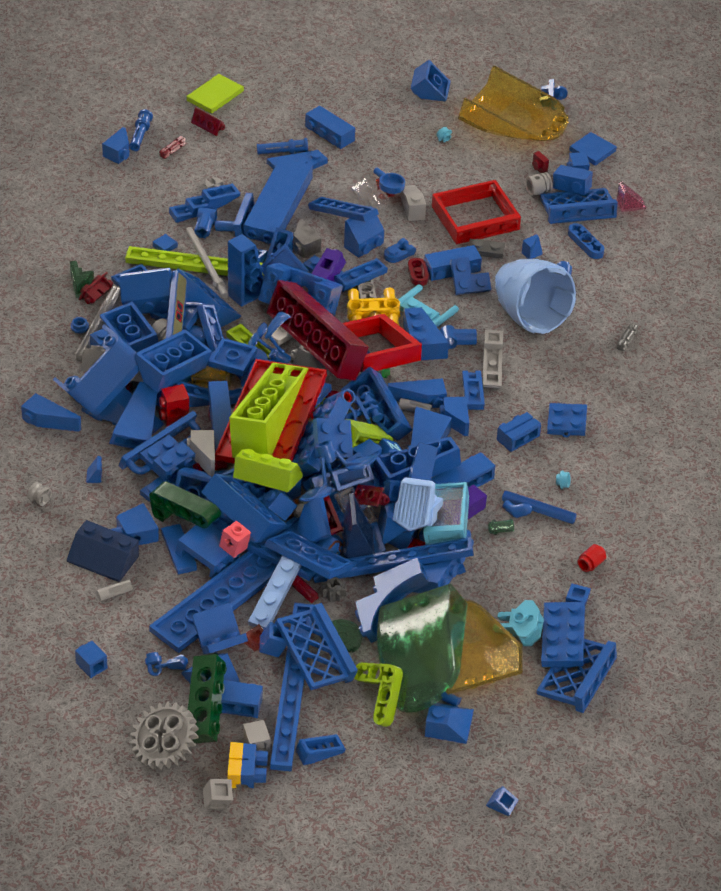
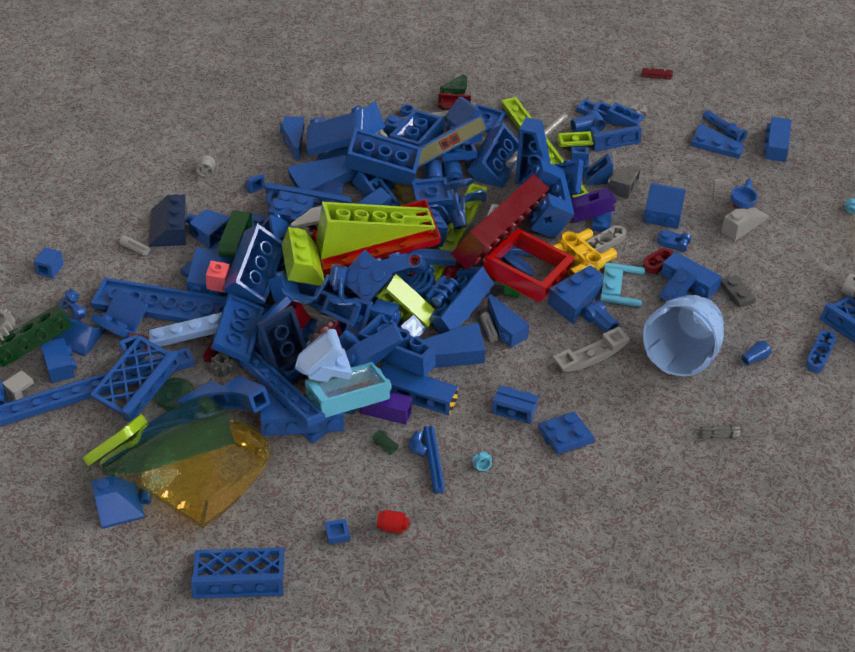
camera: 60 degrees right, 0 degrees up
(117, 147) = (624, 46): blue slope -> none
(142, 125) = (662, 48): blue pin -> none
(165, 243) = (543, 114): blue tile -> none
(173, 403) = (352, 185): red brick -> none
(207, 122) = (707, 77): dark red hinge -> none
(210, 325) = (461, 166): blue tile -> none
(215, 93) = (746, 68): lime tile -> none
(220, 242) = (574, 139): none -> lime slope
(278, 199) = (654, 146): blue brick -> none
(308, 755) = (29, 420): blue slope -> none
(343, 209) = (670, 179): blue tile -> none
(361, 274) = (614, 226): blue tile -> none
(457, 409) = (501, 354): blue slope -> none
(473, 389) = (542, 354): blue plate -> none
(481, 229) = (764, 280): red window -> none
(502, 801) = (42, 582): blue slope -> none
(524, 622) = (266, 504): medium azure hinge -> none
(531, 247) = (768, 317): blue slope -> none
(563, 634) = (277, 540): blue plate -> none

